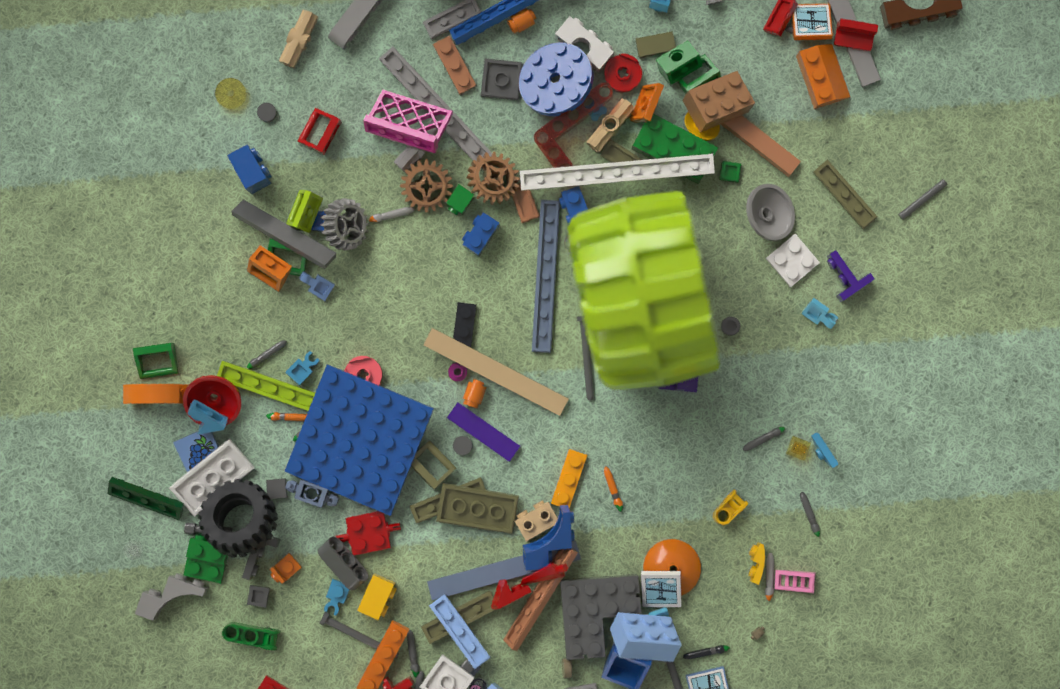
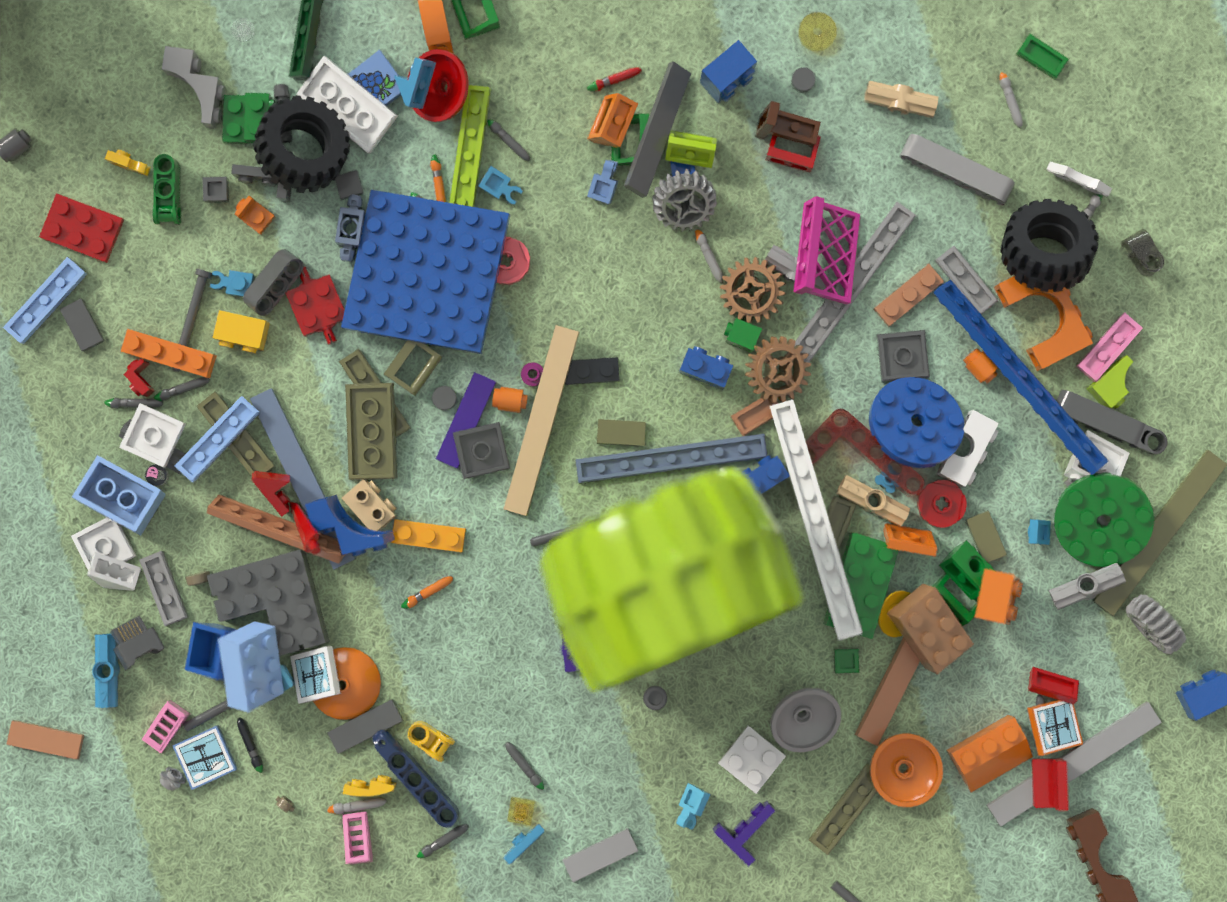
camera: 75 degrees right, 0 degrees up
(219, 665) = (123, 160): none -> yellow plate
(235, 261) = (613, 79): none -> red piece
(301, 132) = (787, 125): none -> reddish brown bracket
(510, 424) = (481, 450): none -> dark grey tile
(517, 311) = (621, 432): none -> olive tile
(705, 44) = (998, 597): none -> orange slope
(709, 558) = (365, 726): none -> dark grey tile
(783, 515) = (443, 802): none -> dark blue piece
(832, 133) = (922, 773): none -> orange dish
(844, 393) = (600, 855): none -> light grey tile

